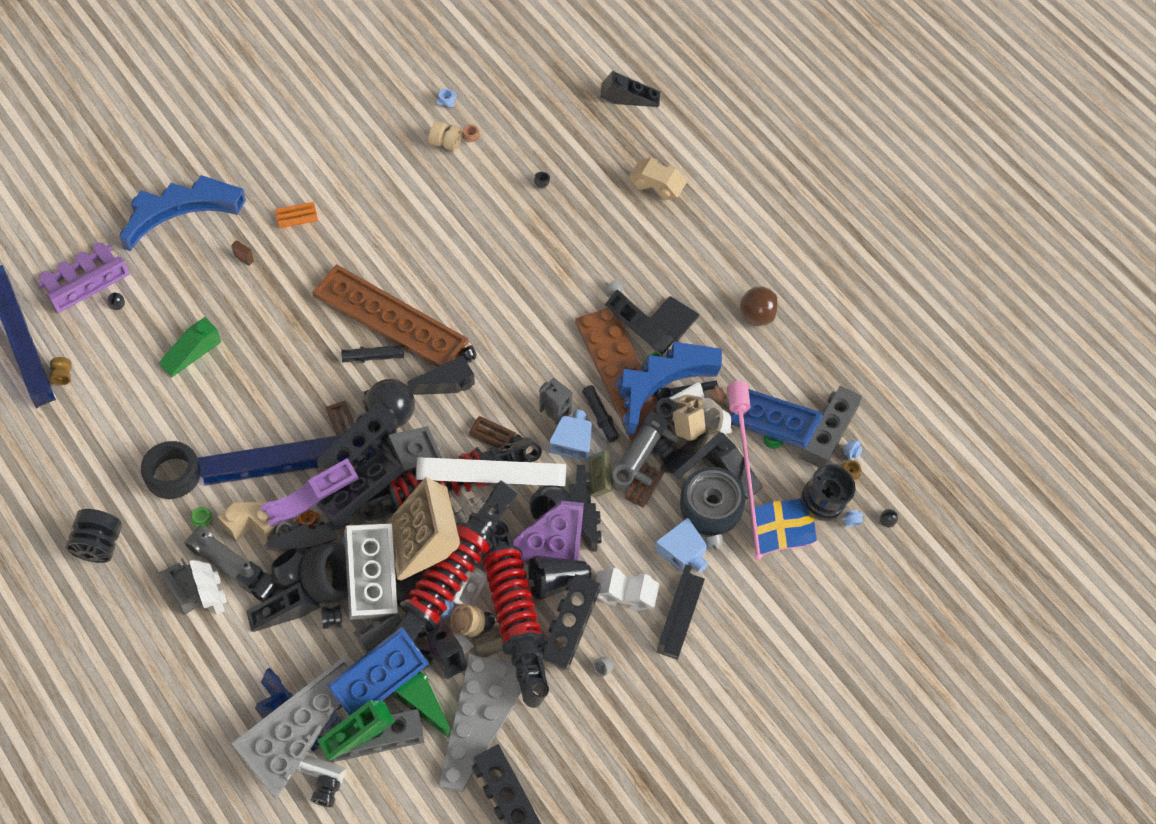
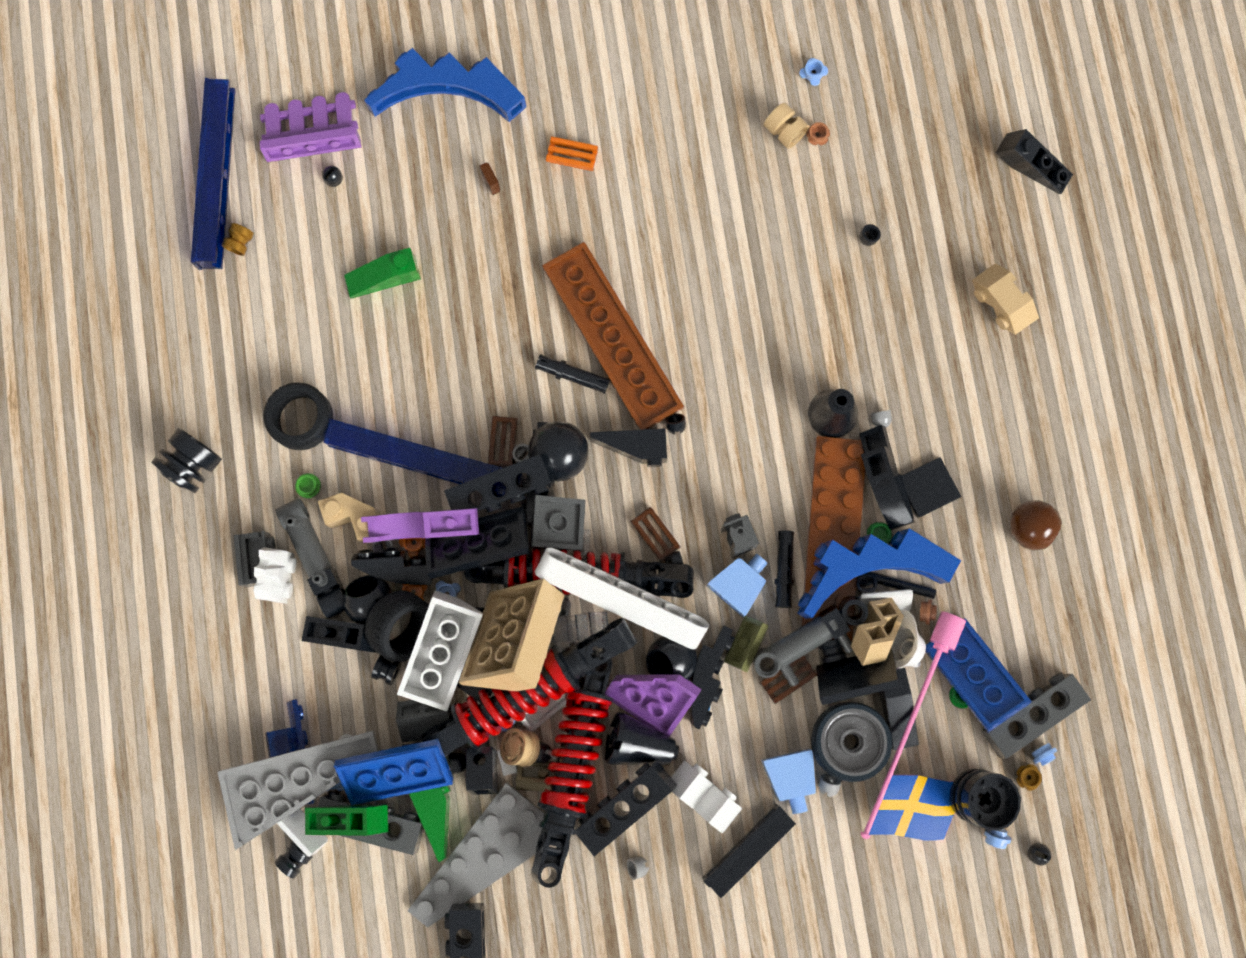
camera: 35 degrees right, 20 degrees up
(579, 294) = (833, 413): none -> black cone

